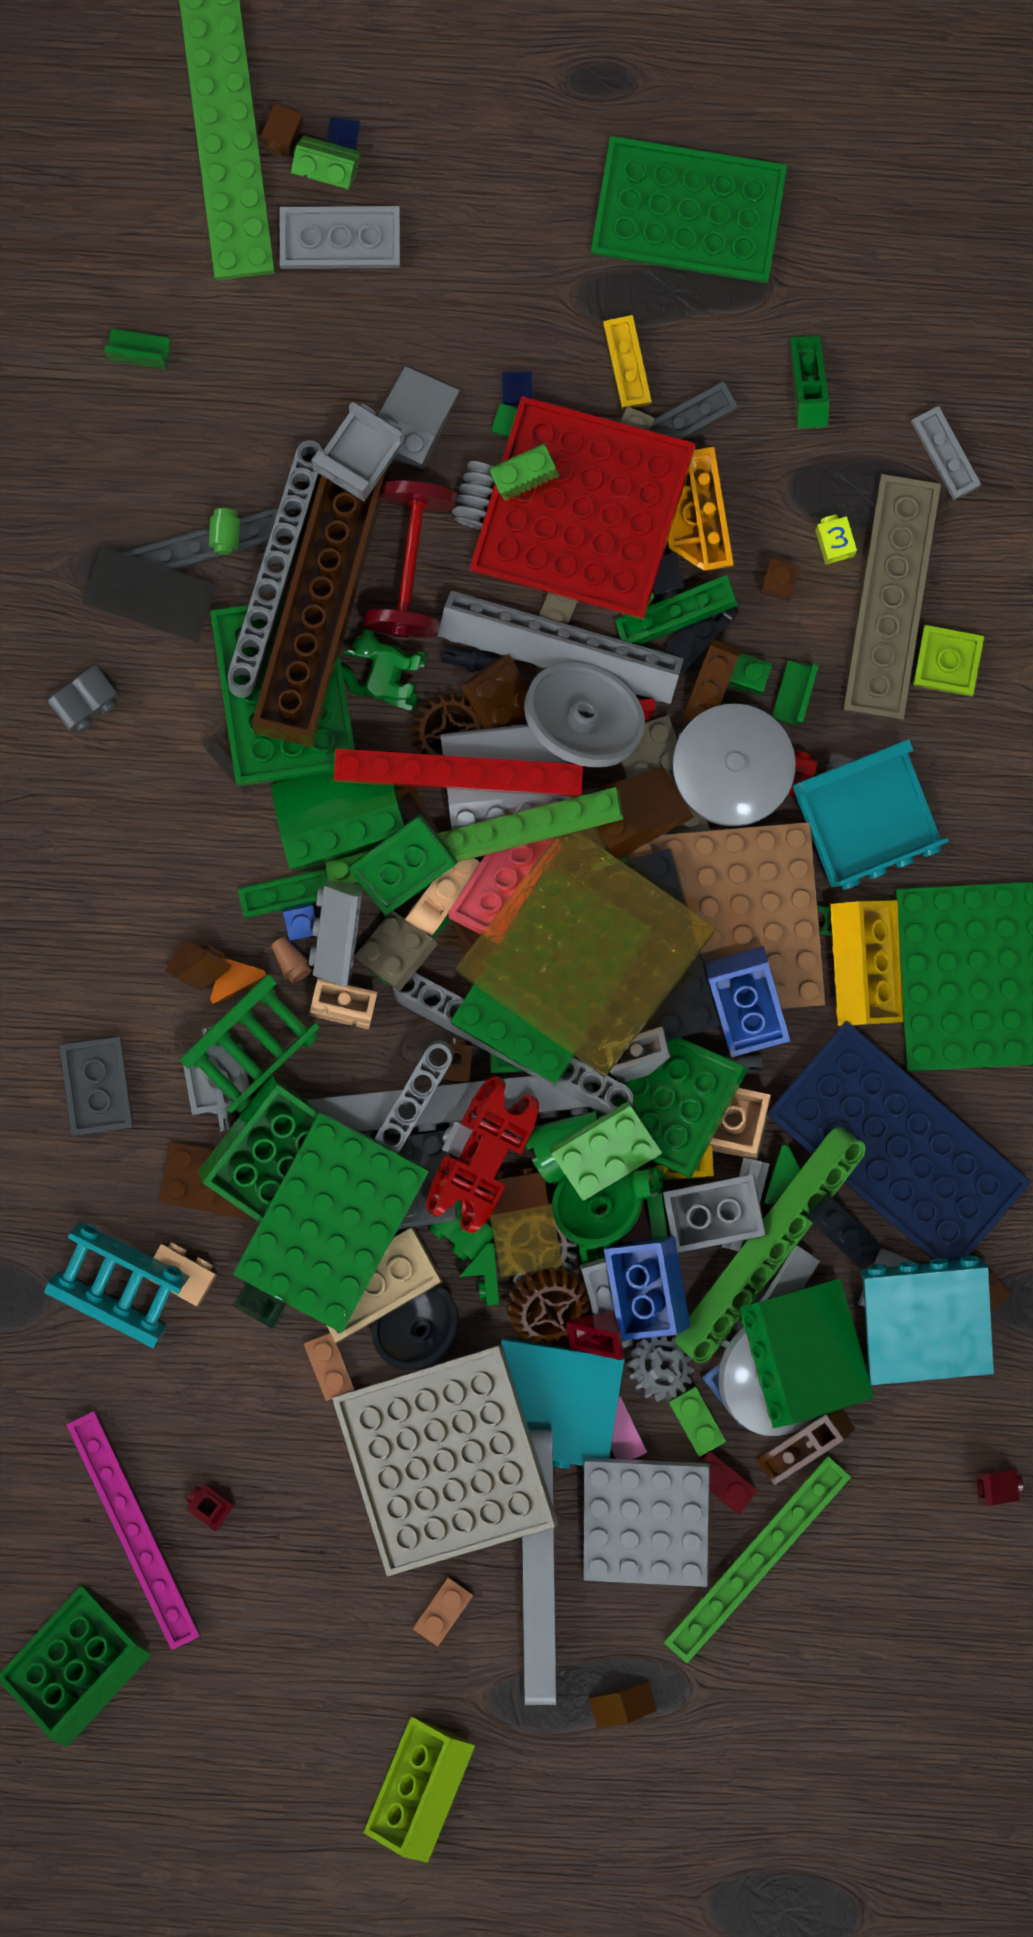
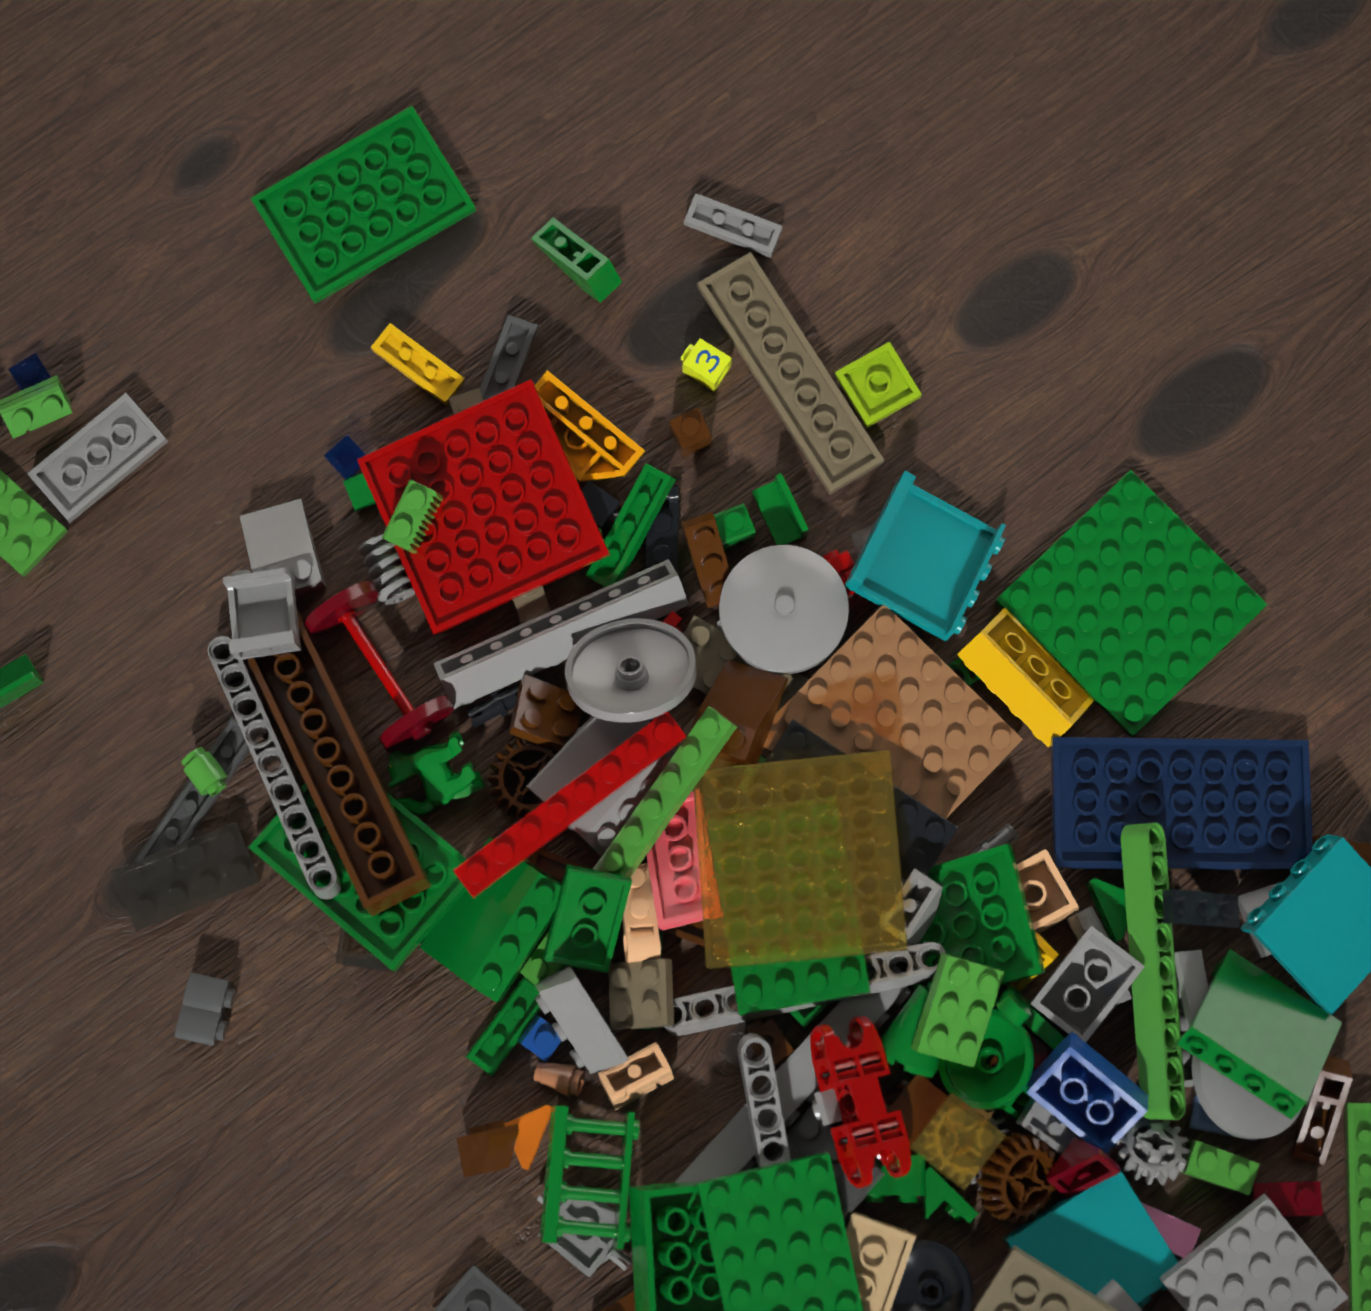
camera: 40 degrees left, 5 degrees down
(747, 1001) = (961, 789): blue slope -> none

